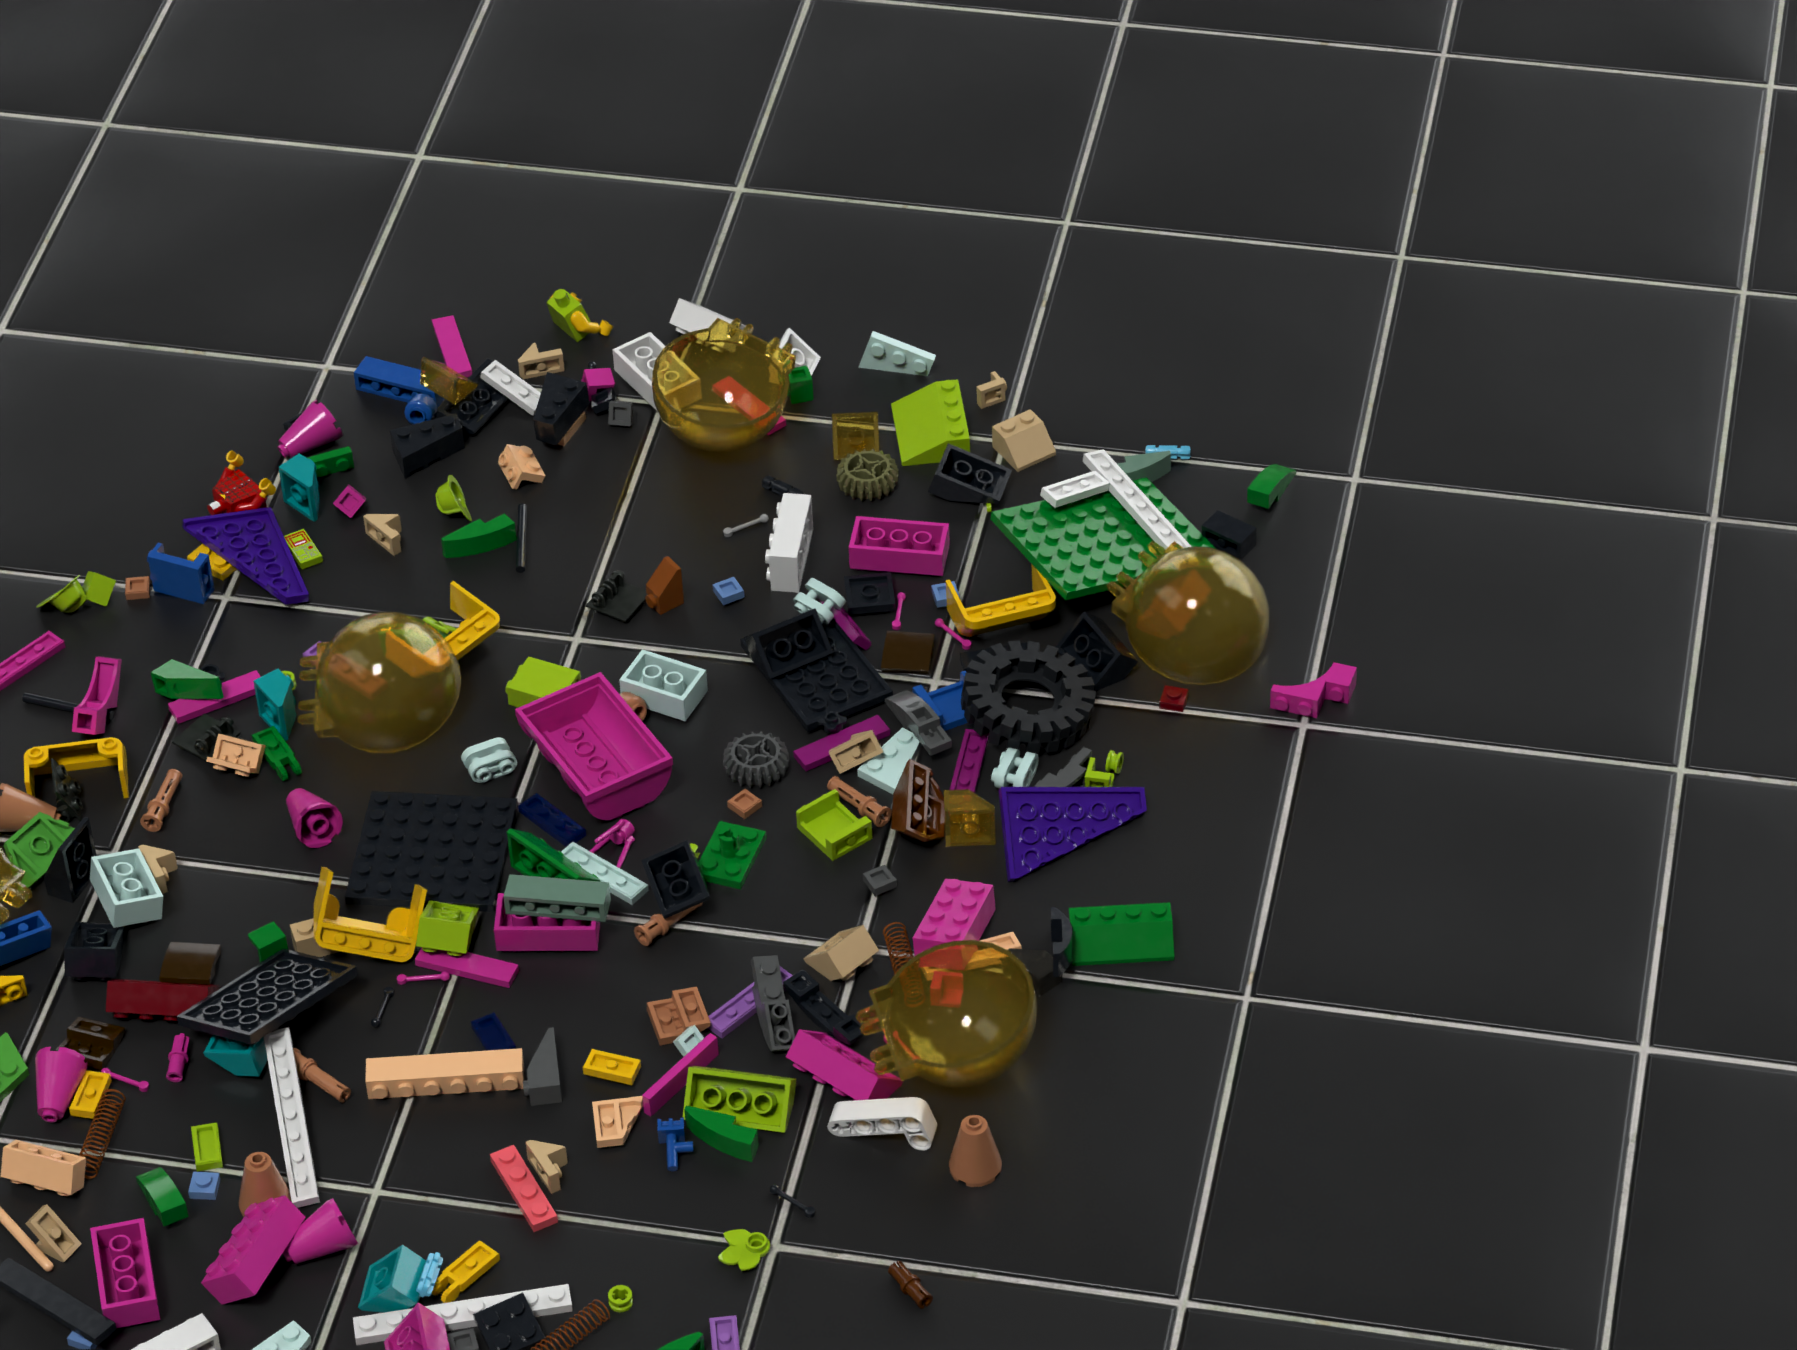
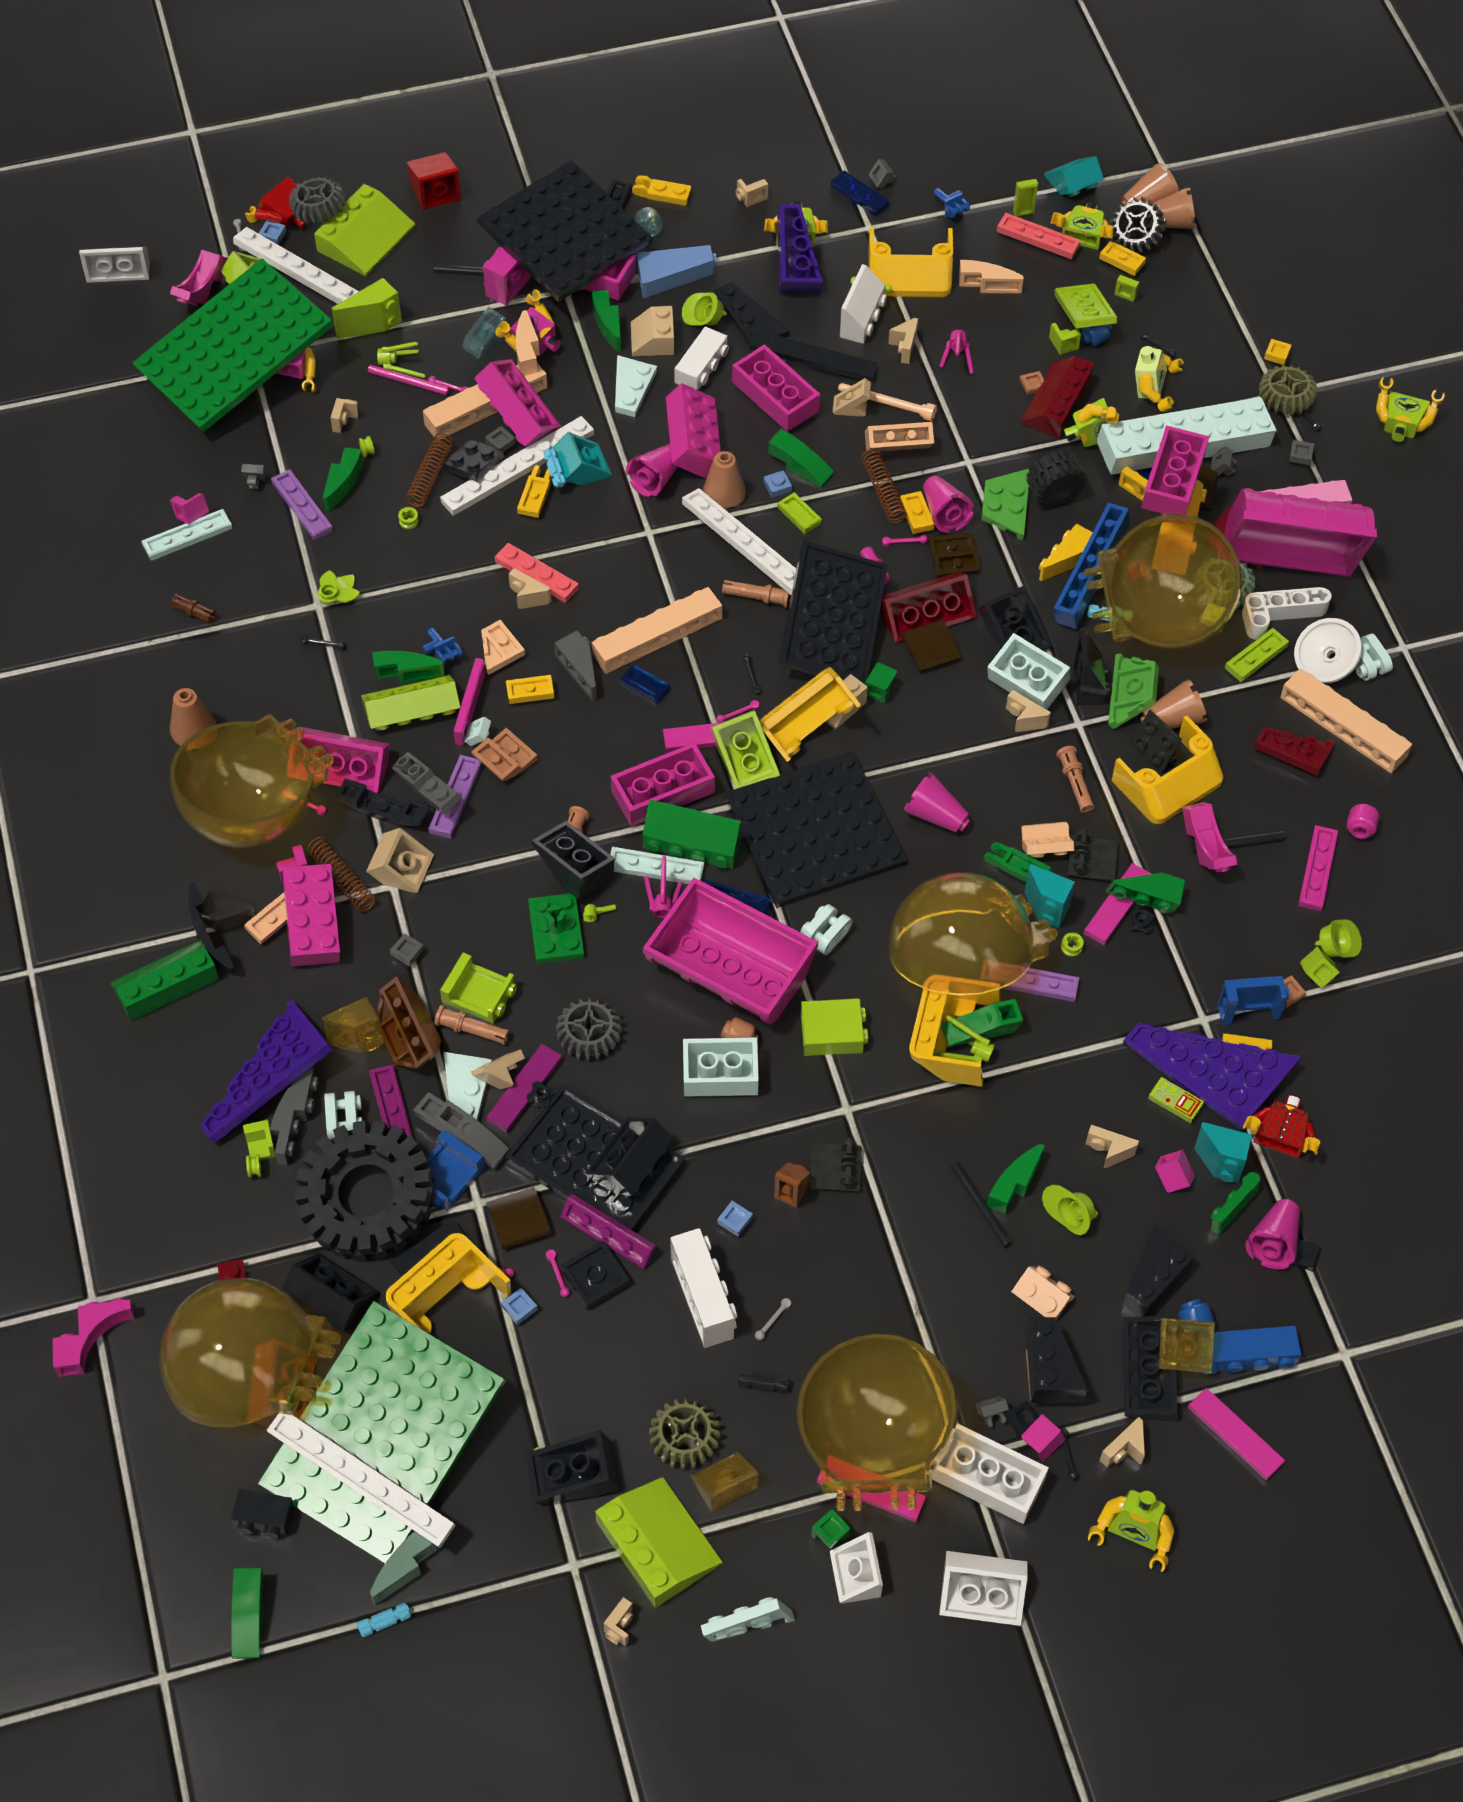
camera: 150 degrees right, 15 degrees up
(511, 386) = (1123, 1384): white plate -> none
(557, 898) = (655, 778): sand green brick -> none
(744, 803) = (575, 986): nougat tile -> none
(829, 596) = (625, 1213): light aqua brick -> none
(883, 1117) = (304, 713): white beam -> none
(899, 546) = (594, 1337): dark pink brick -> none
(1022, 440) = (546, 1557): tan slope -> none
(1074, 489) = (436, 1459): white plate -> none

